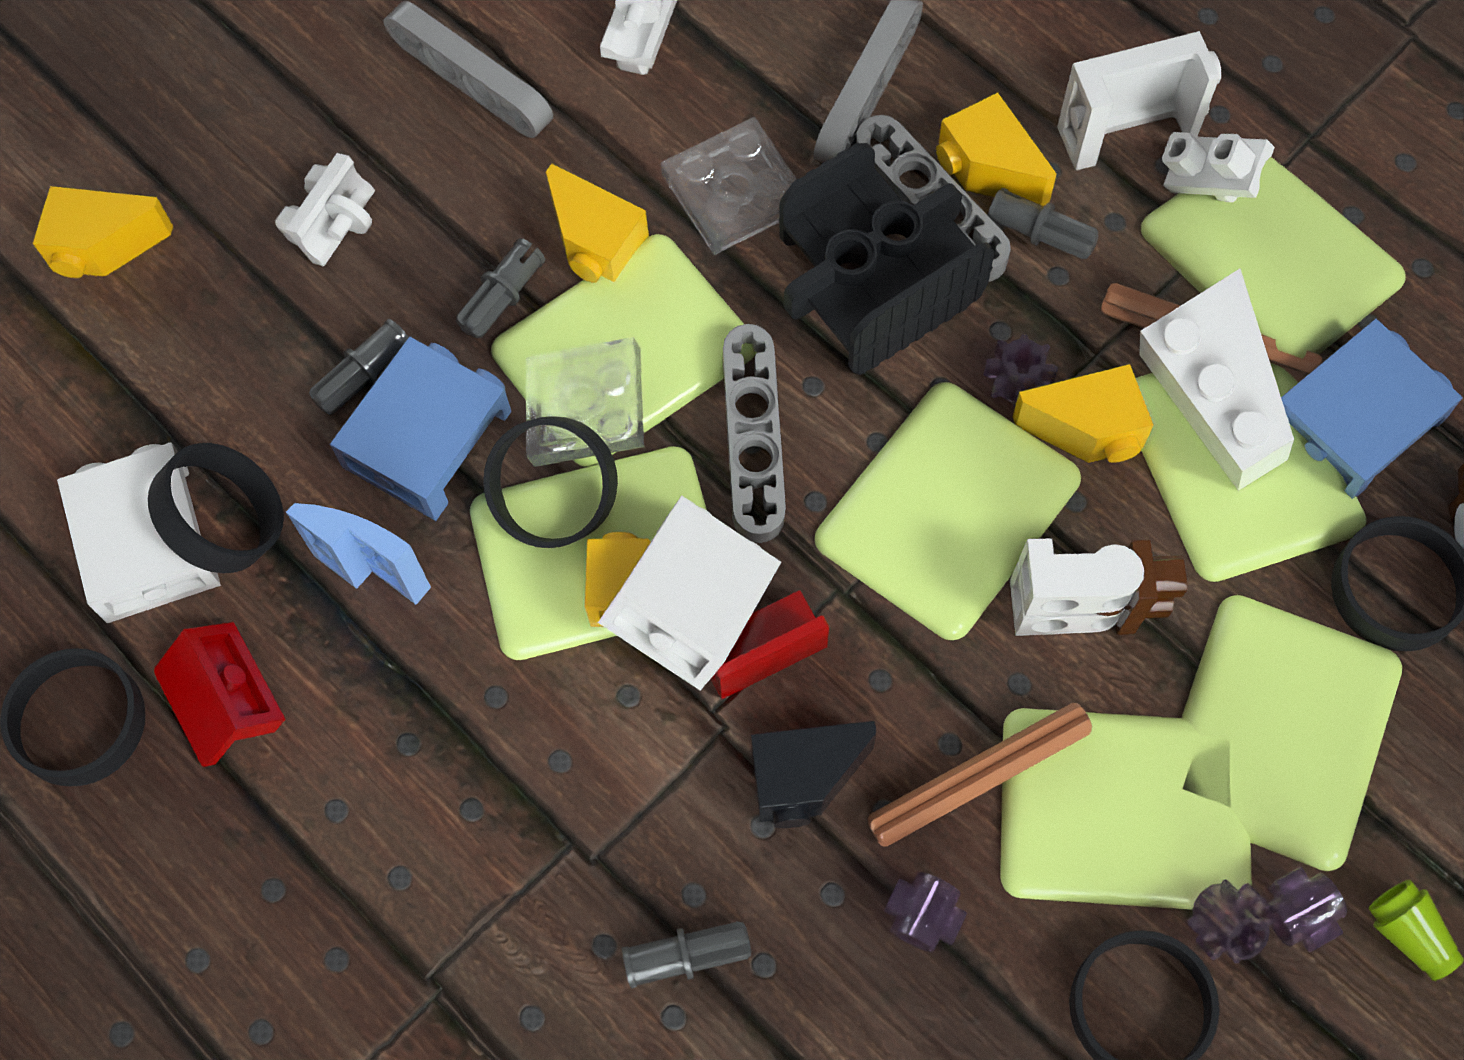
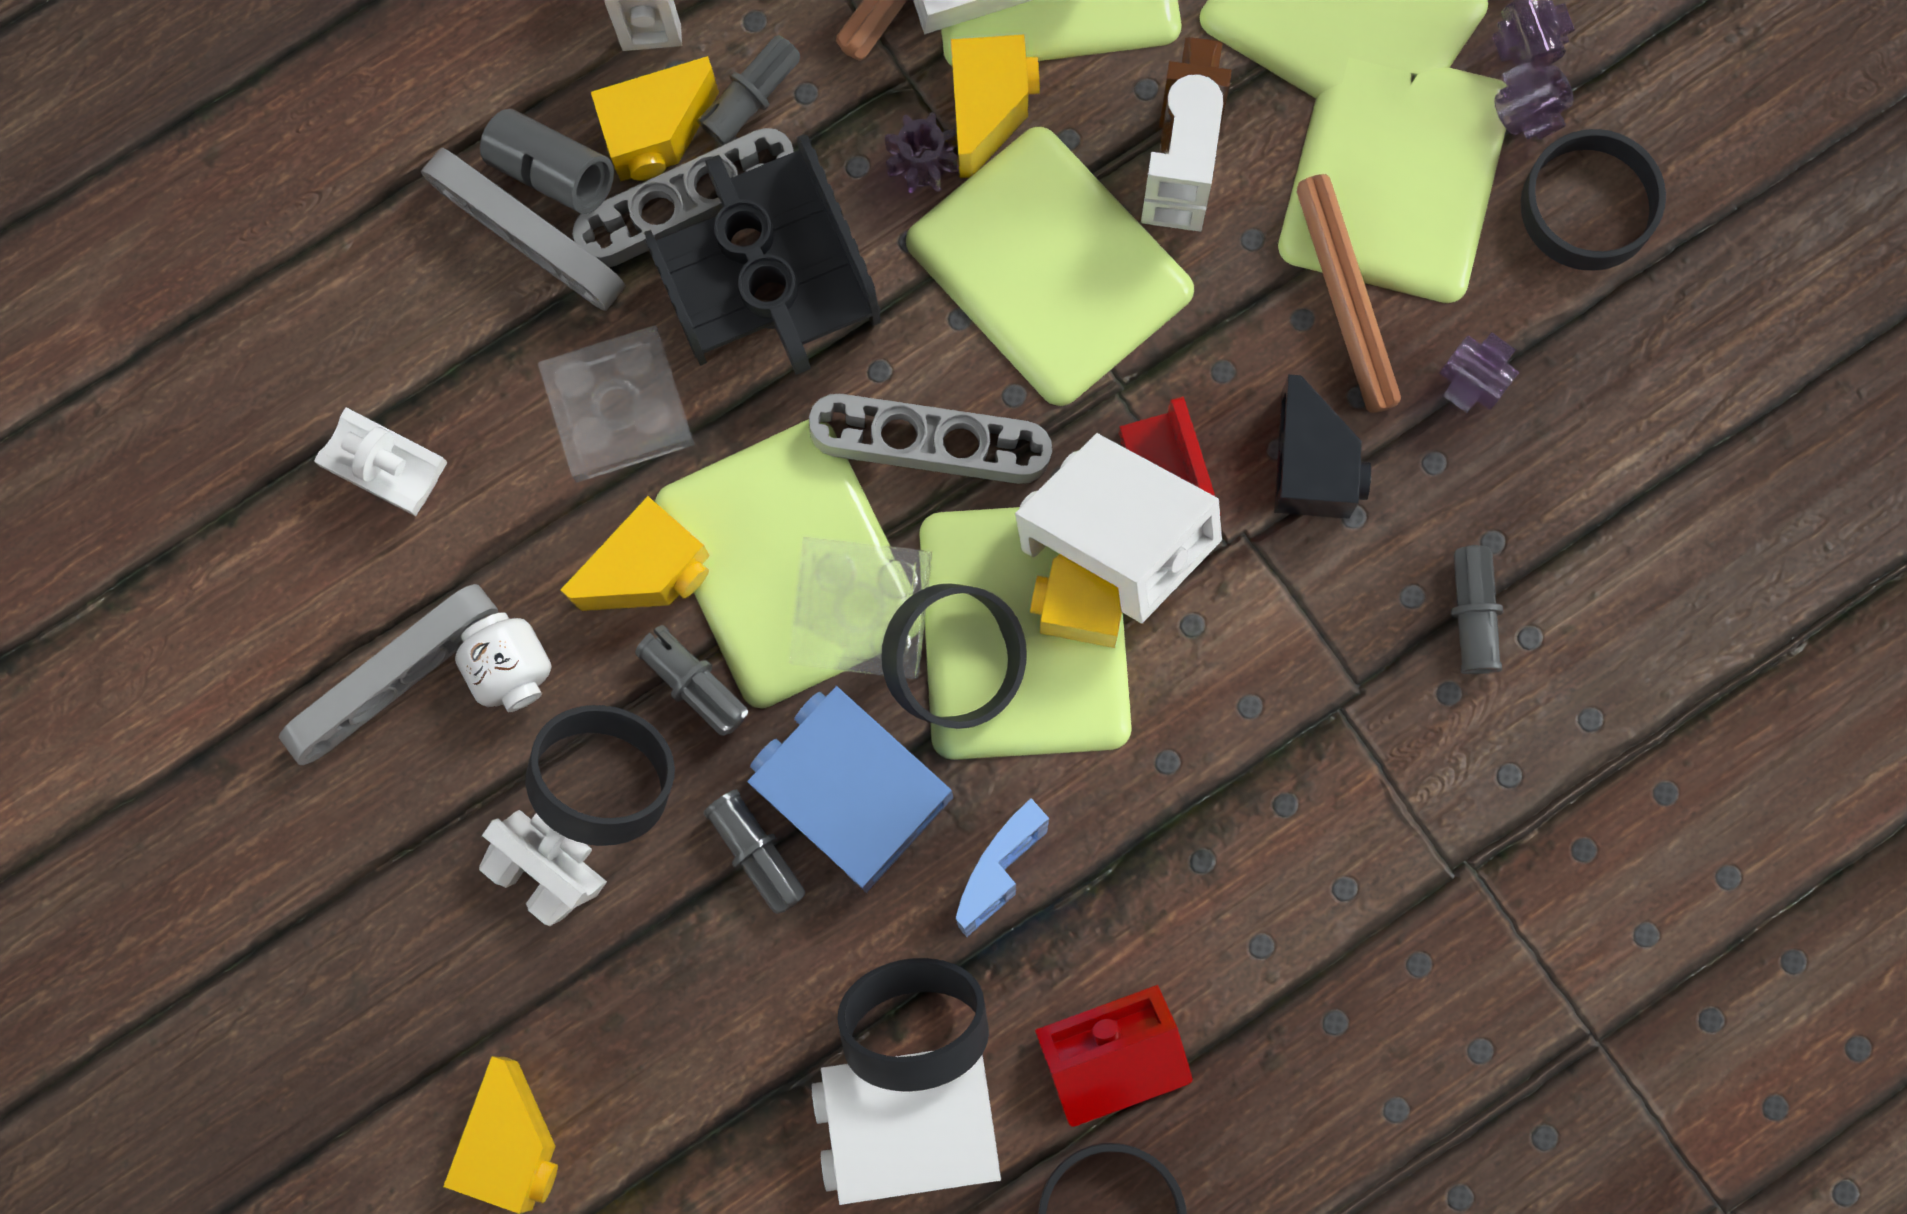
camera: 75 degrees left, 10 degrees up
(437, 192) = (611, 722): none -> black tyre
(490, 144) = (503, 662): none -> white head
(930, 79) = (547, 161): none -> dark grey pin

